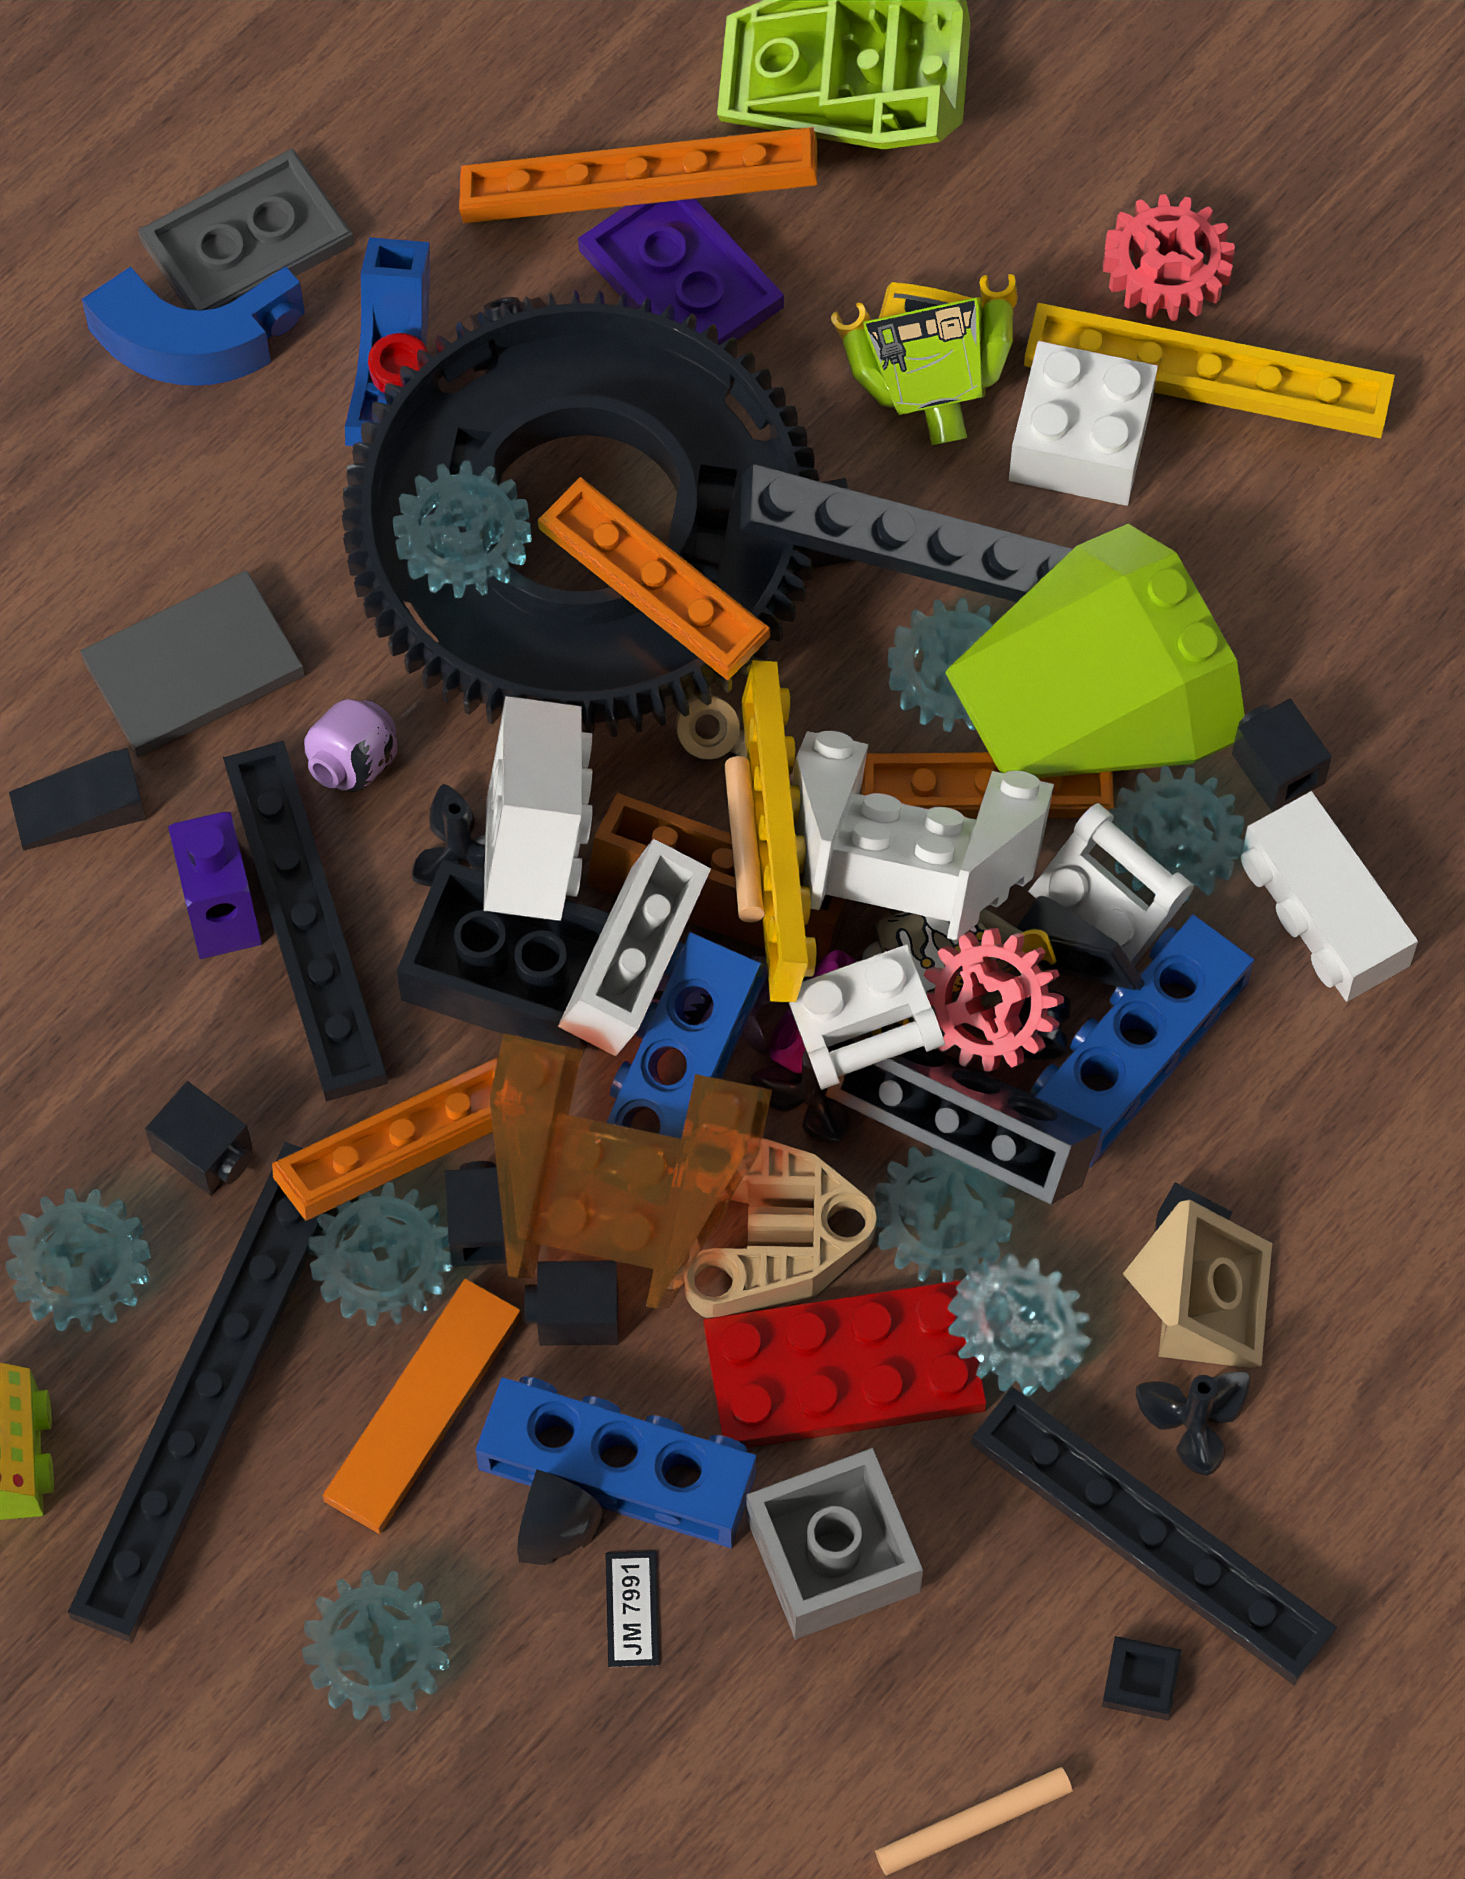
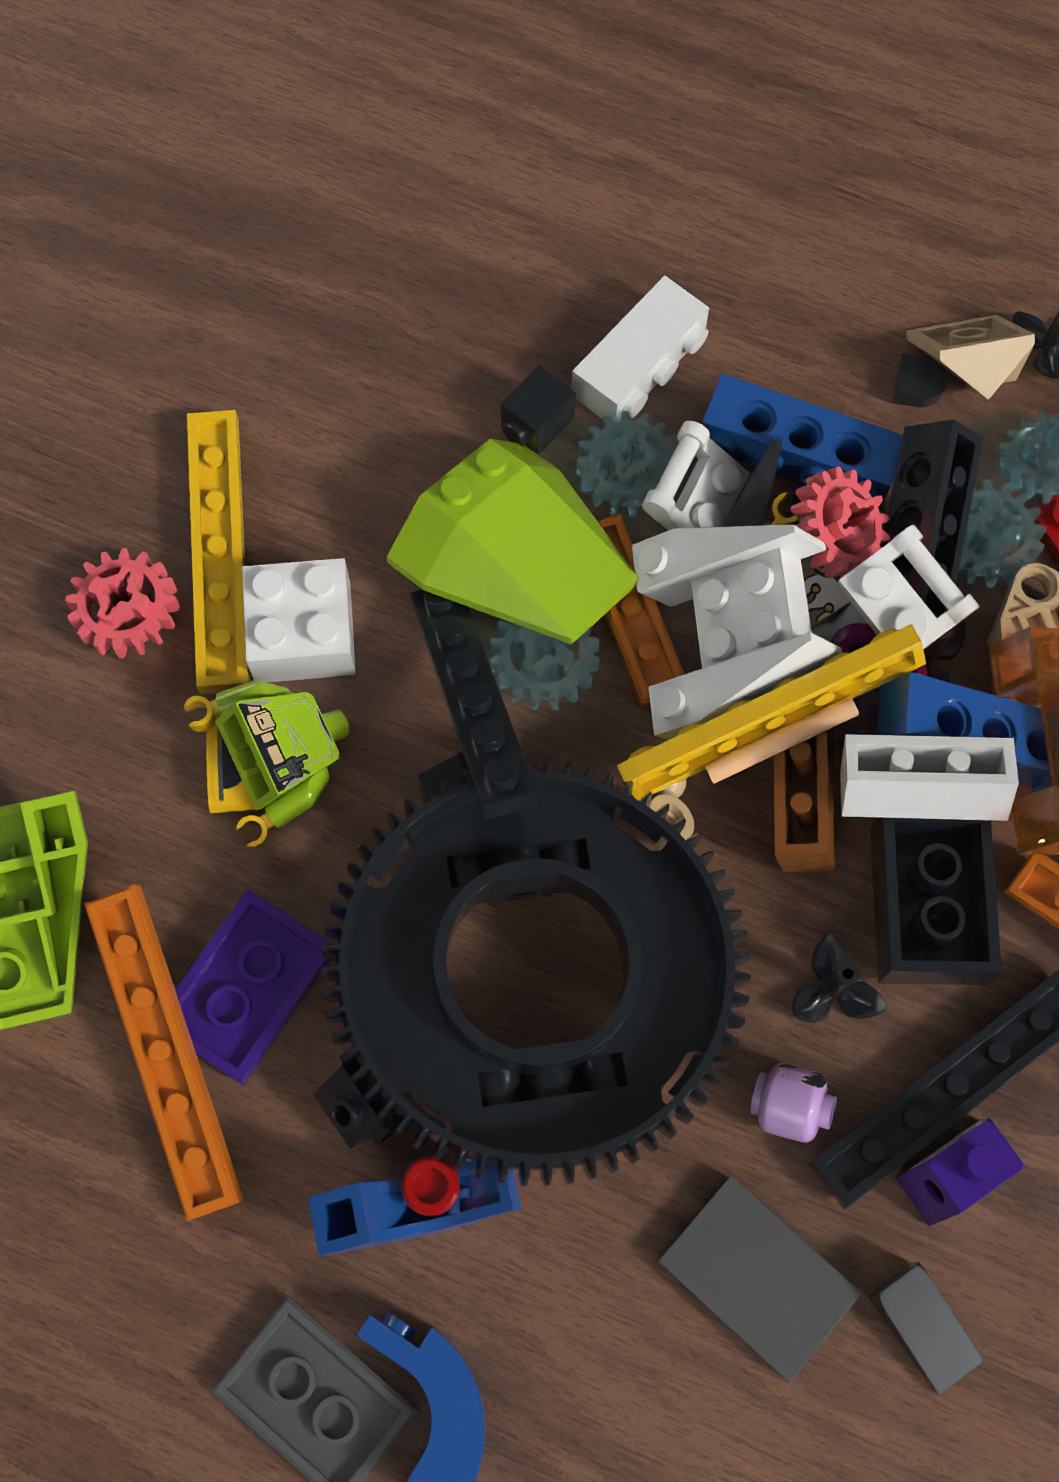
camera: 110 degrees left, 5 degrees up
(468, 502) = (599, 1020): clear light blue gear -> none
(537, 809) = (832, 900): white brick -> none
(654, 578) = (594, 872): orange tile -> none

